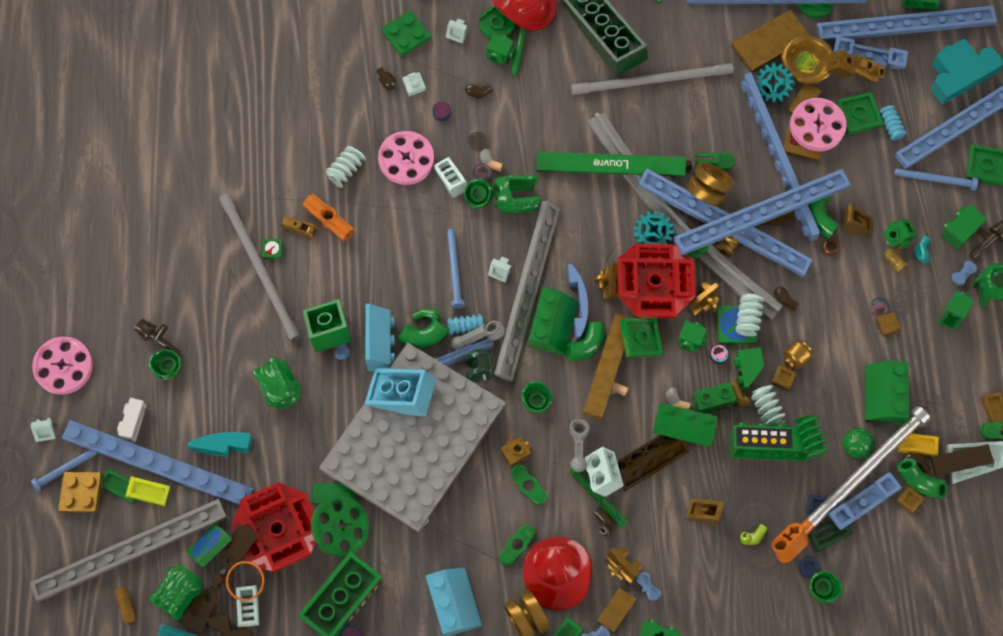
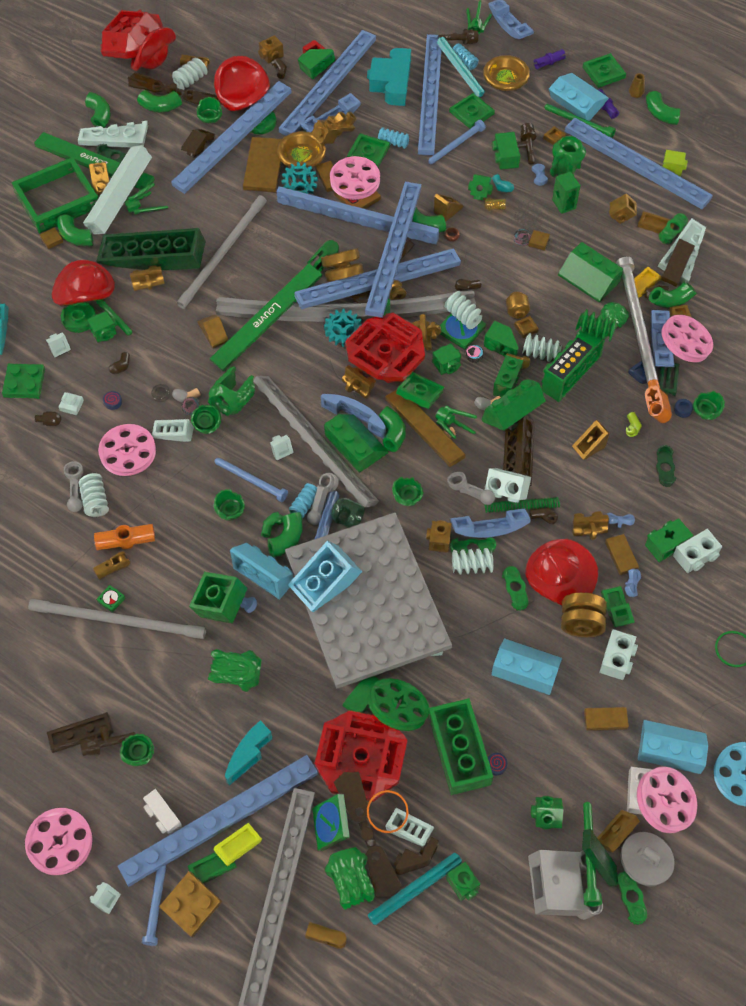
camera: 50 degrees left, 10 degrees down
(152, 312) = (72, 734): none -> dark brown tile
(330, 157) = (74, 503): none -> light grey piece
(415, 271) = (228, 504): none -> green hair
(511, 495) = (472, 560): none -> light aqua piece
(556, 486) = (490, 528): none -> medium blue slope
(568, 133) = (213, 330): none -> pearl gold slope
(573, 45) = (147, 278): none -> pearl gold hips
(633, 378) = (445, 416): none -> green plant
(744, 583) = (664, 455): none -> dark green piece
(882, 513) = (687, 338): none -> bright pink wedge
(982, 372) = (623, 208): none -> pearl gold brick

